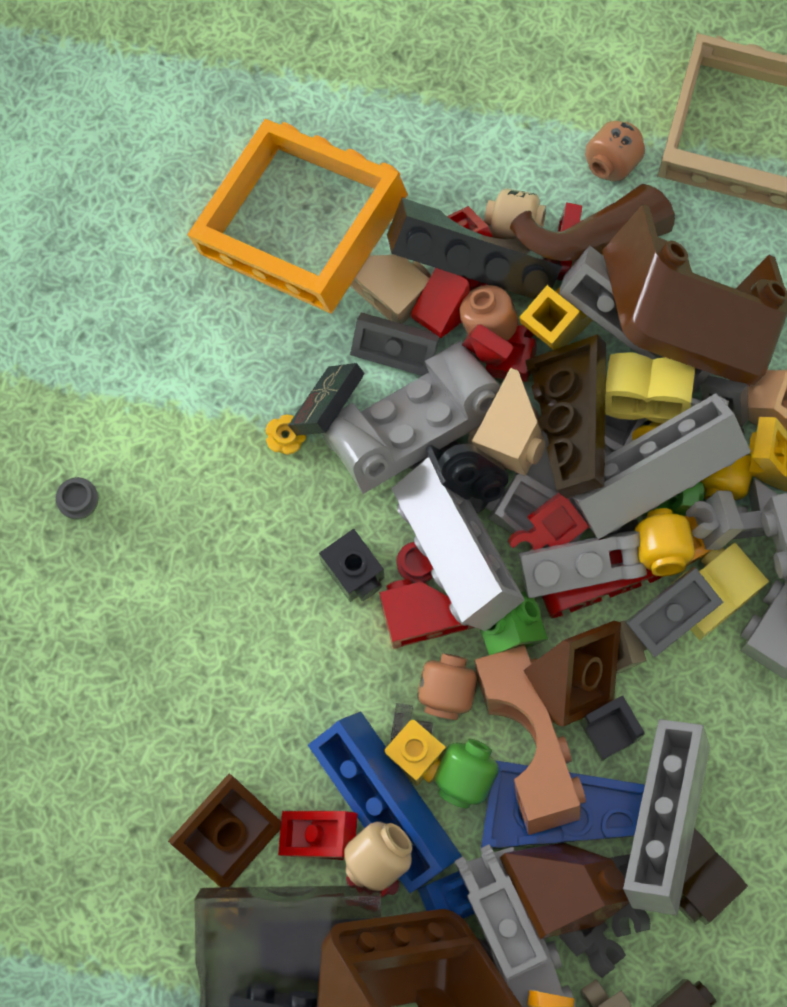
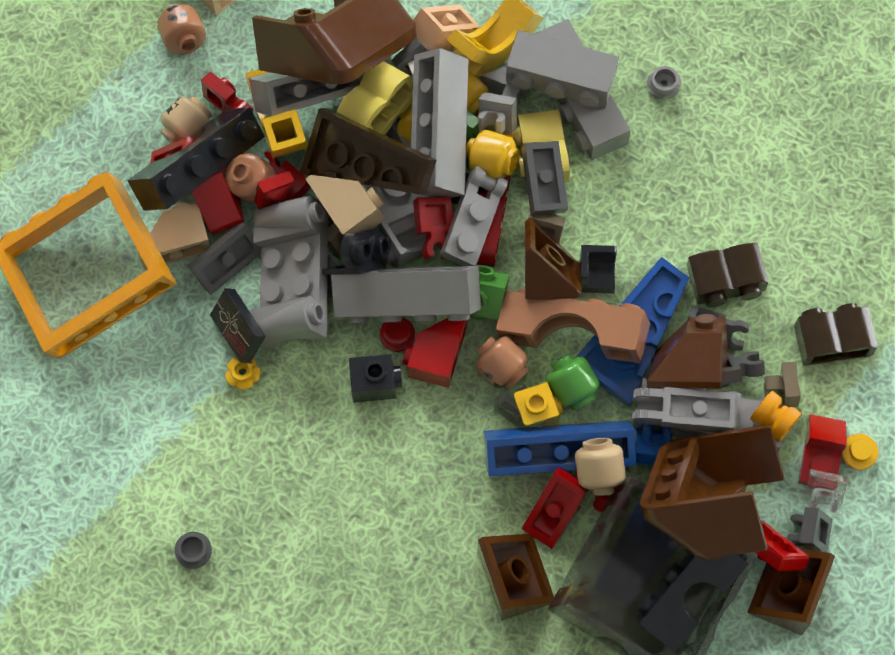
camera: 60 degrees left, 5 degrees down
(596, 229) = (239, 64): reddish brown animal -> none
(667, 817) = (684, 261): light grey brick -> none

